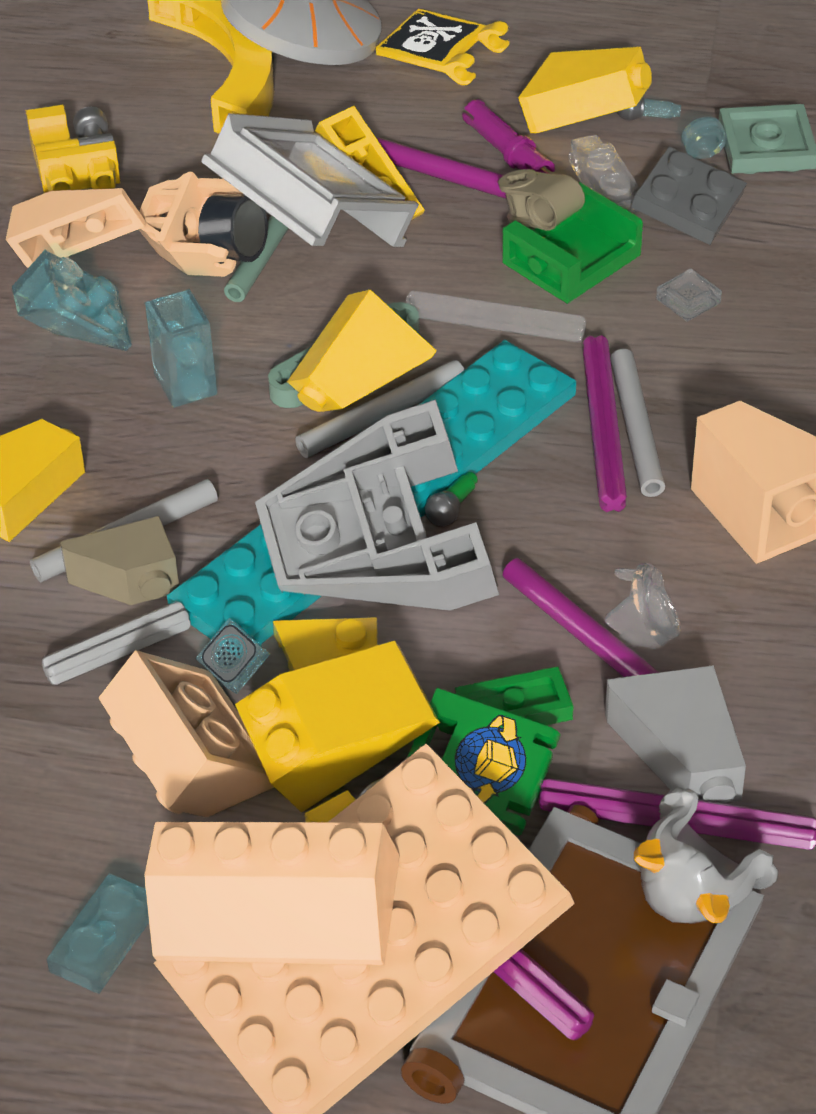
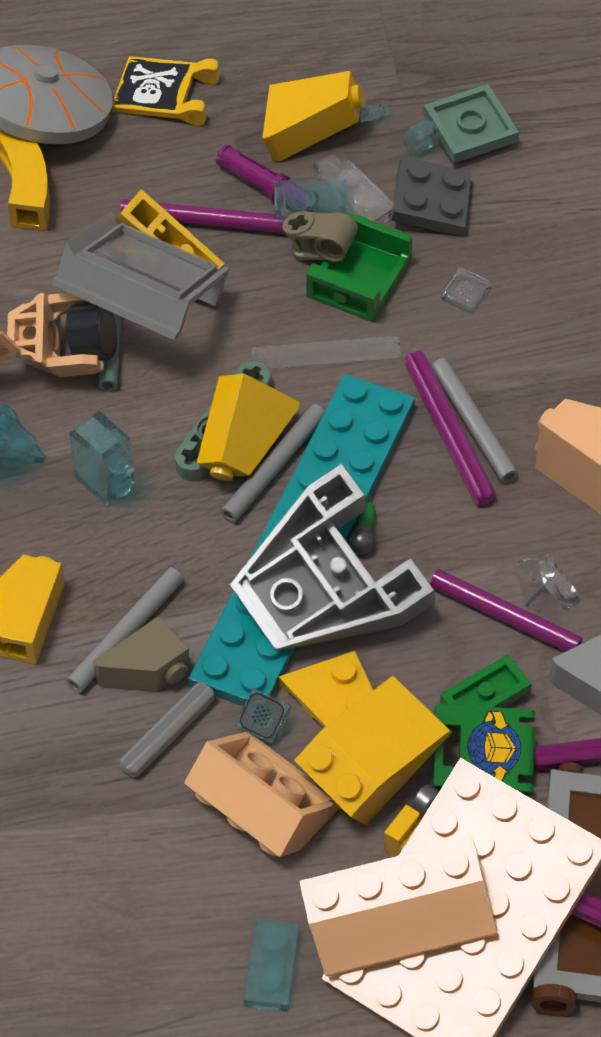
camera: 20 degrees left, 10 degrees up
(544, 156) = (310, 196): none -> clear light blue plate

